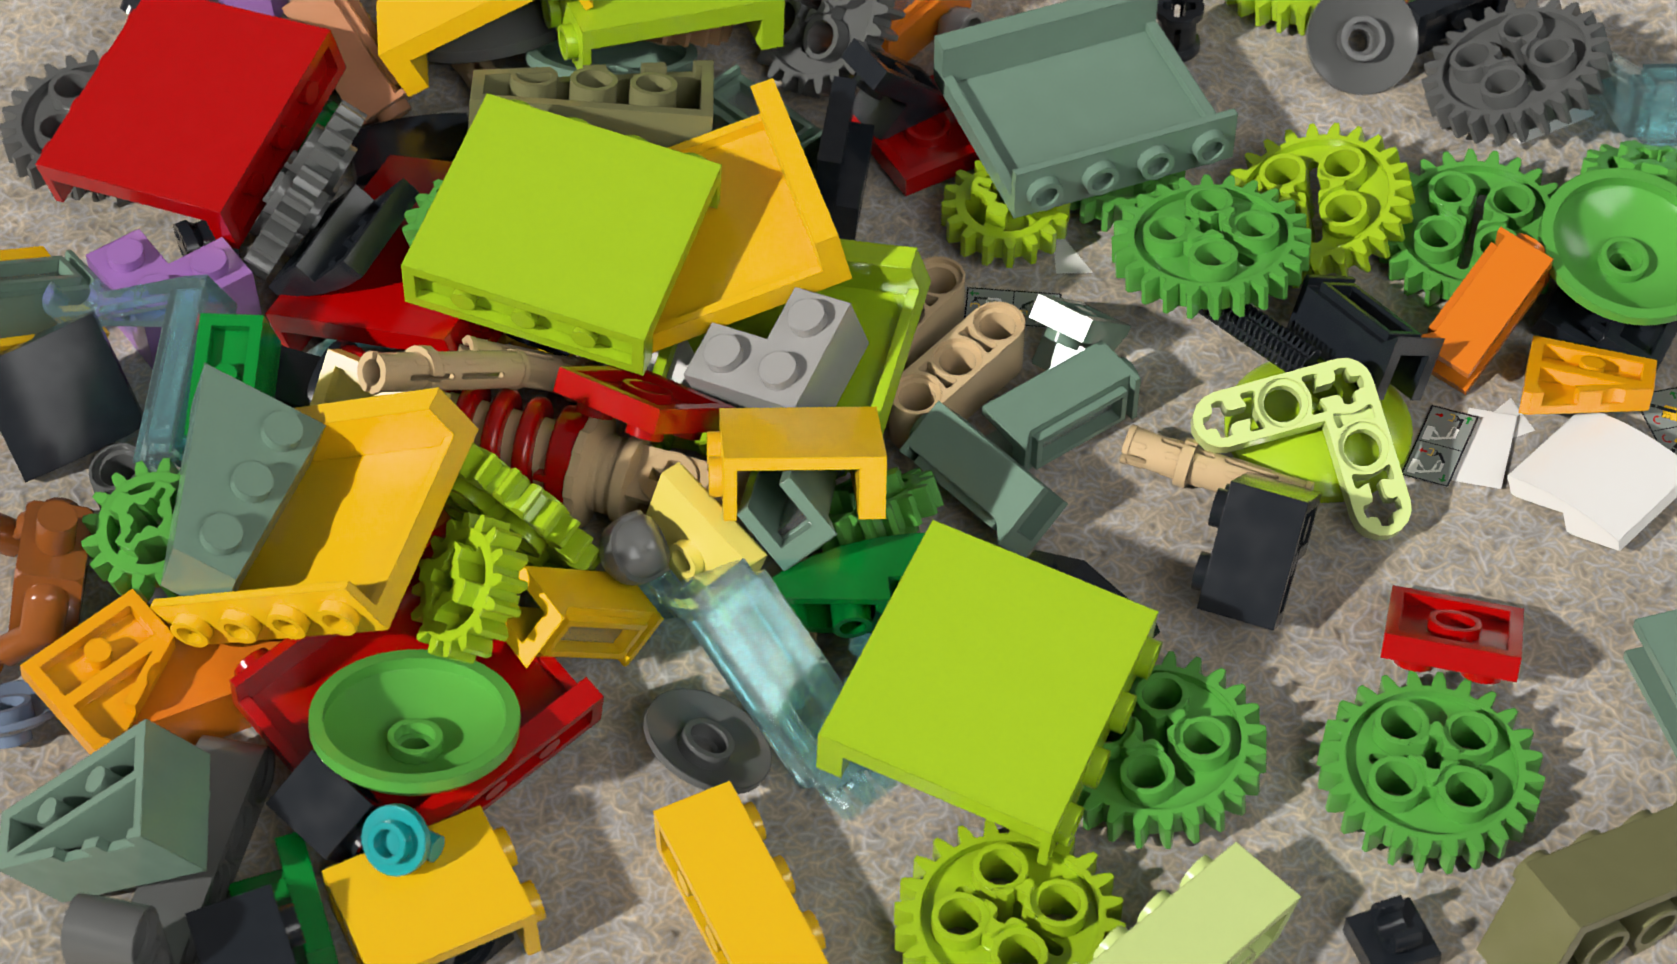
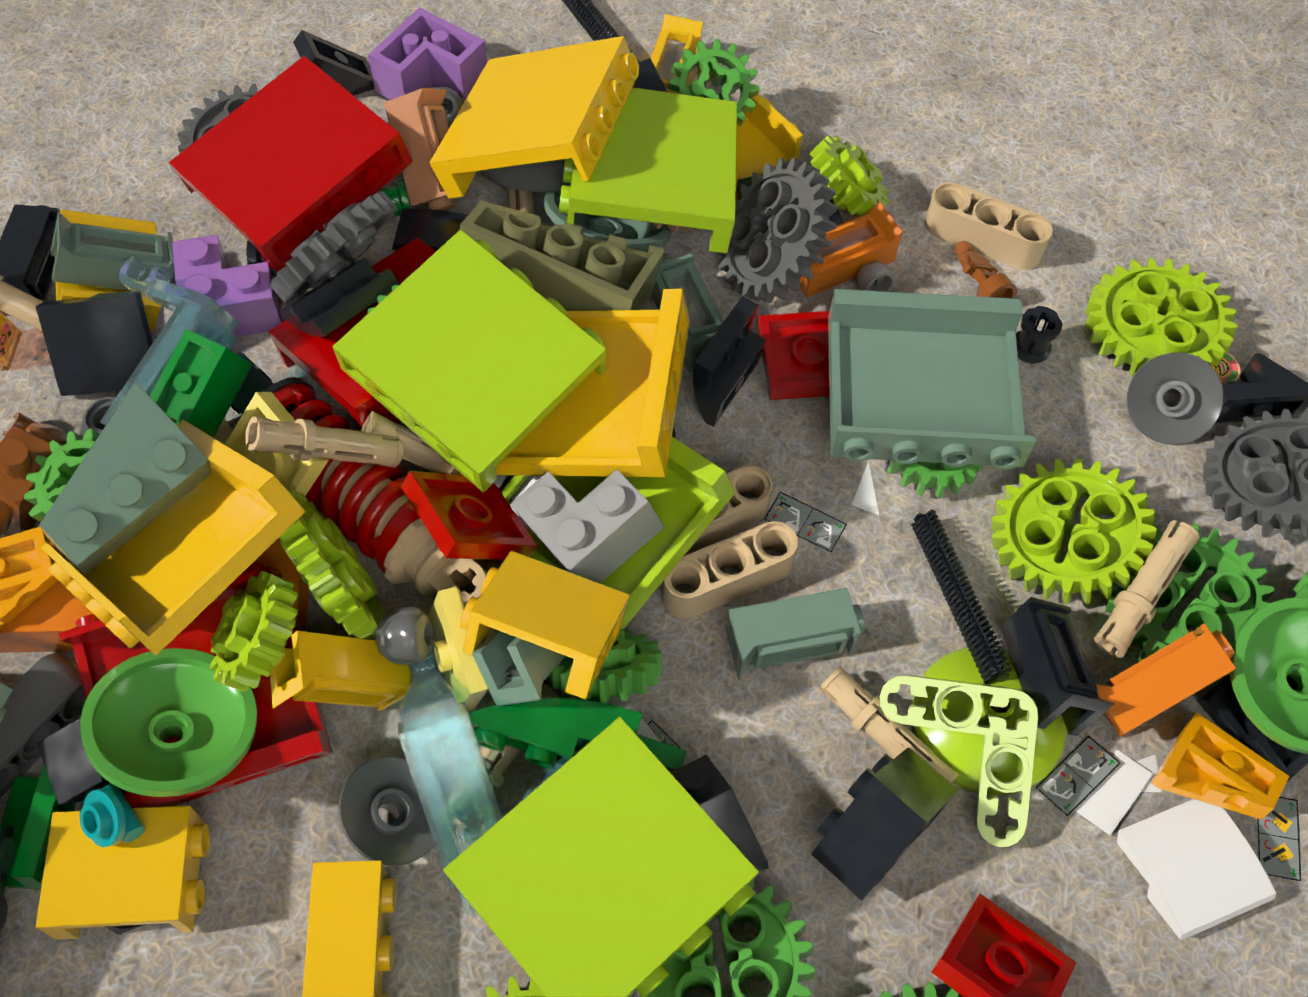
camera: 20 degrees right, 10 degrees up
(892, 90) = (791, 315): black slope -> none
(983, 478) = (704, 669): sand green window -> none
(984, 224) = (818, 463): lime gear -> none
(1071, 329) = (837, 564): sand green slope -> none
(1211, 246) = (968, 542): bright green gear -> none
(1422, 245) = (1137, 603): none -> tan pin

